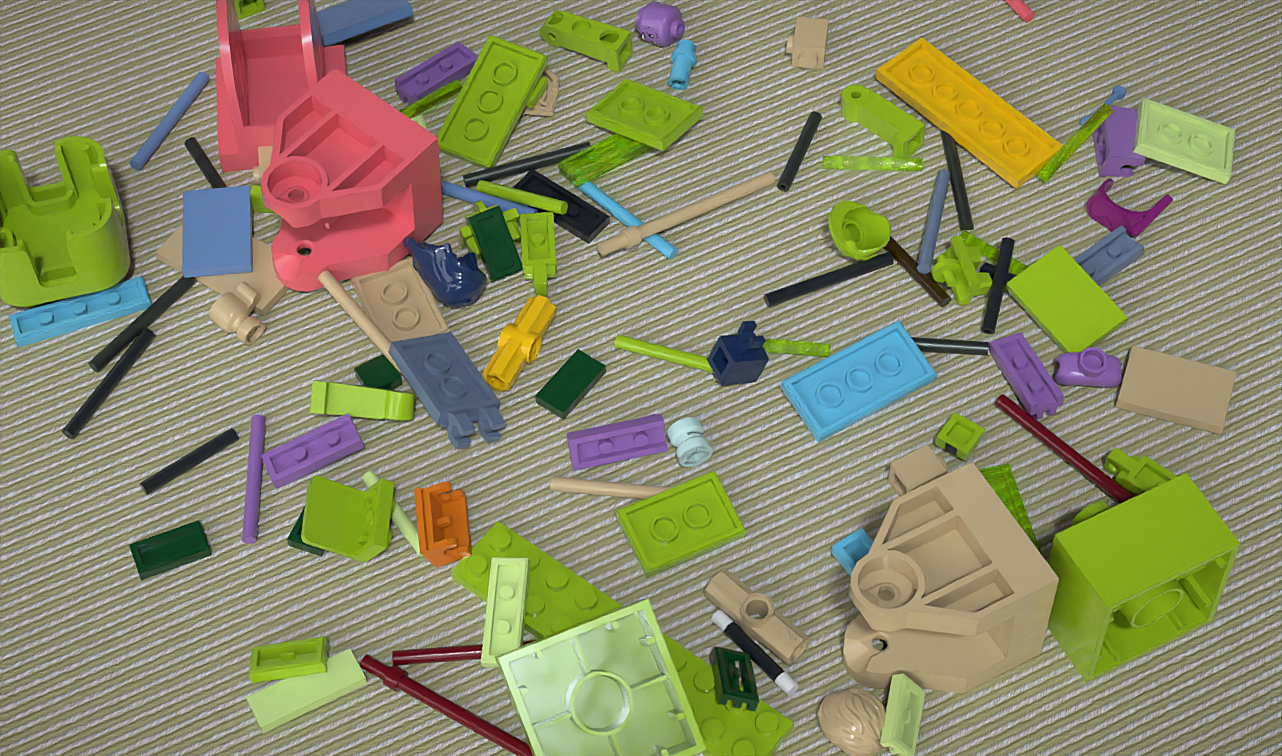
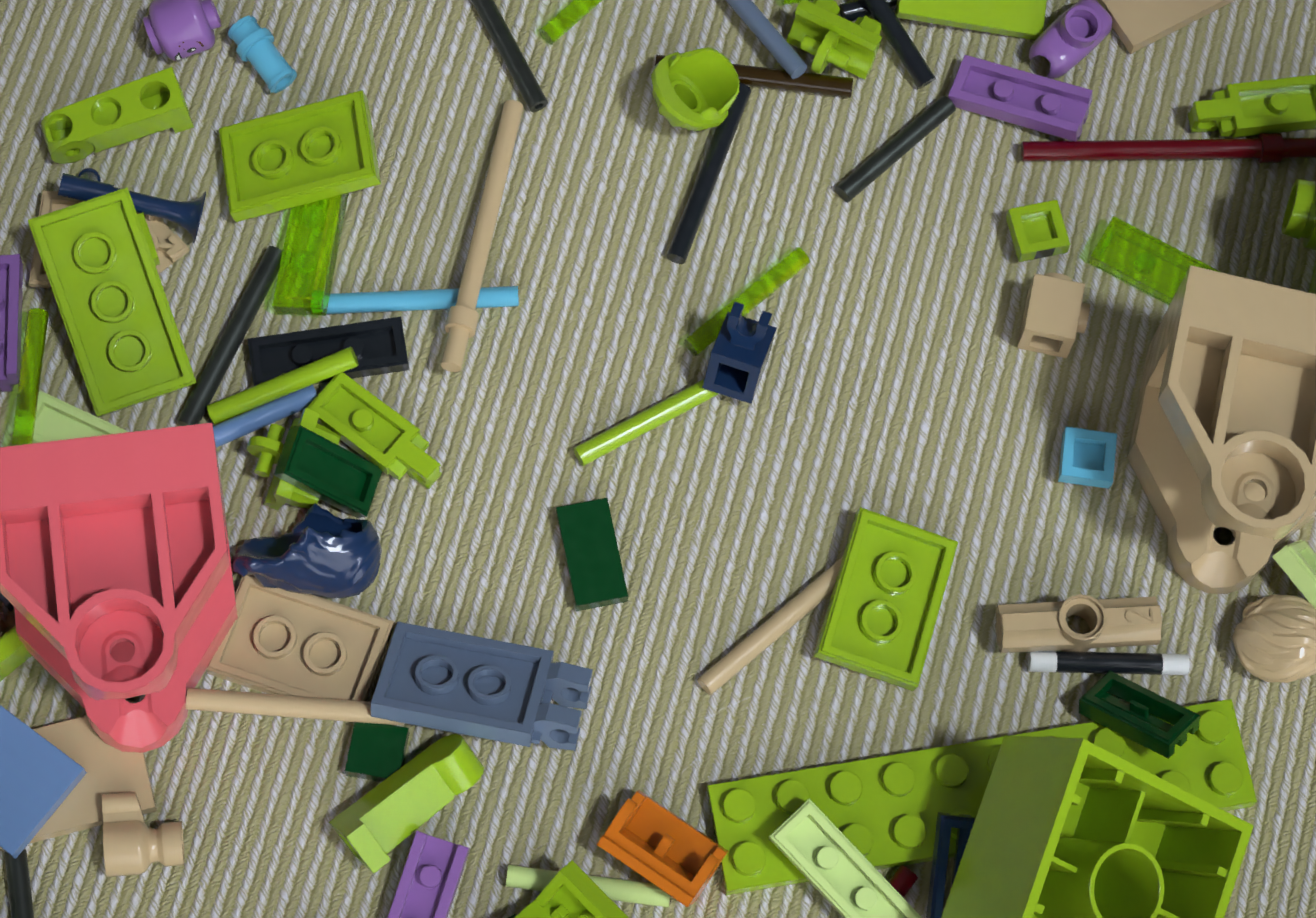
camera: 55 degrees left, 15 degrees up
(519, 343) = (489, 562): yellow piece -> none
(568, 99) = (88, 186): none -> dark blue piece
(617, 442) = (724, 572): medium lavender hinge -> none
(691, 445) = (795, 499): light aqua wheel -> none
(858, 381) = (874, 264): medium azure tile -> none

